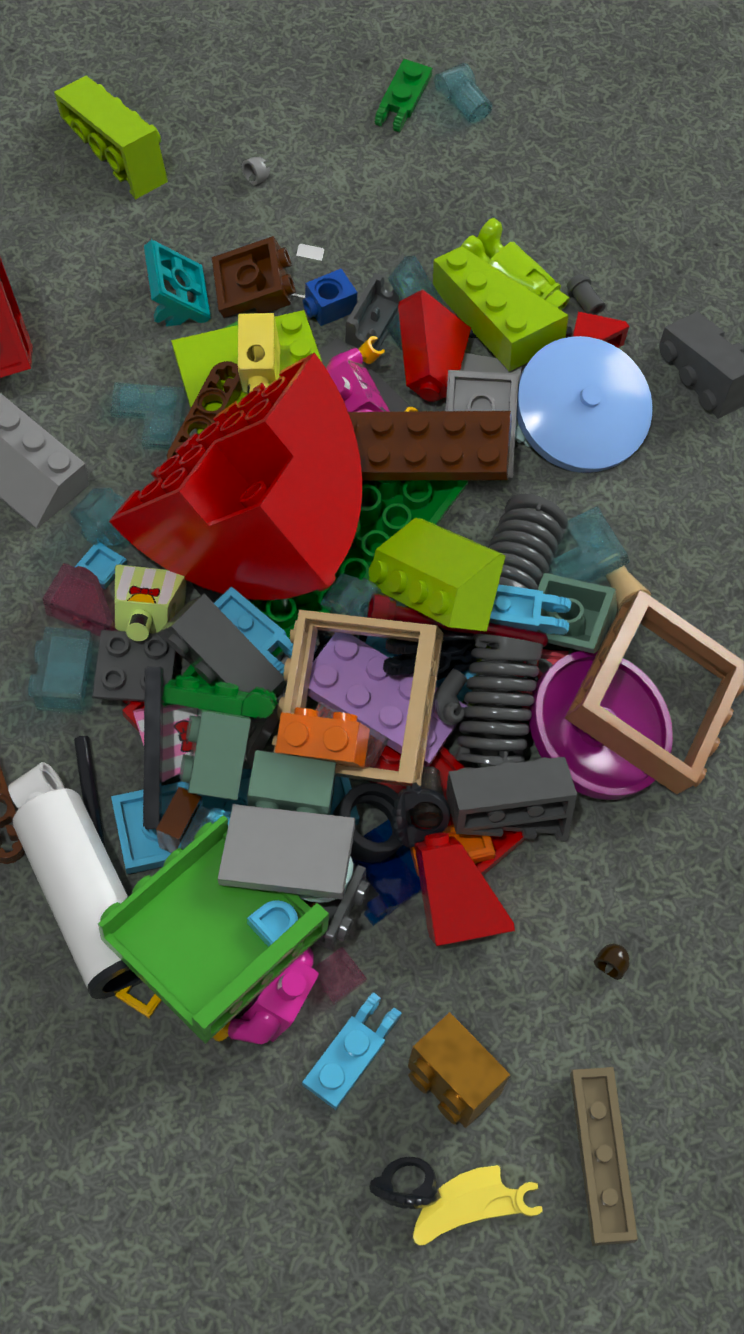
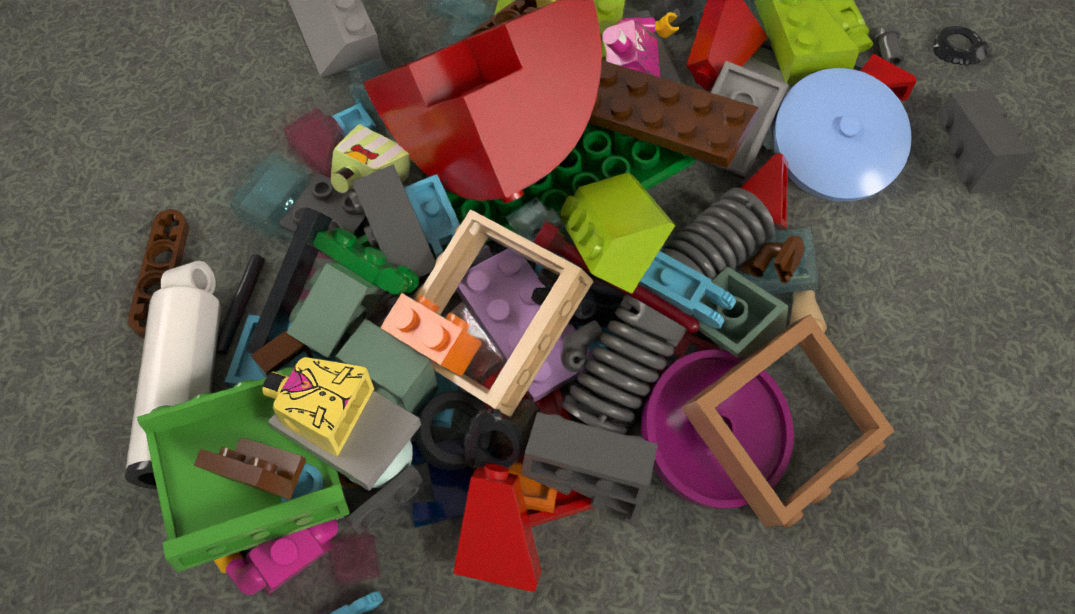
camera: 30 degrees right, 0 degrees up
(235, 920) = (255, 466): none -> reddish brown bracket
(260, 838) = (320, 400): none -> light yellow torso
(543, 480) = (771, 188): none -> red slope
(593, 548) = (786, 257): none -> reddish brown piece
(643, 283) = (949, 53): none -> black piece

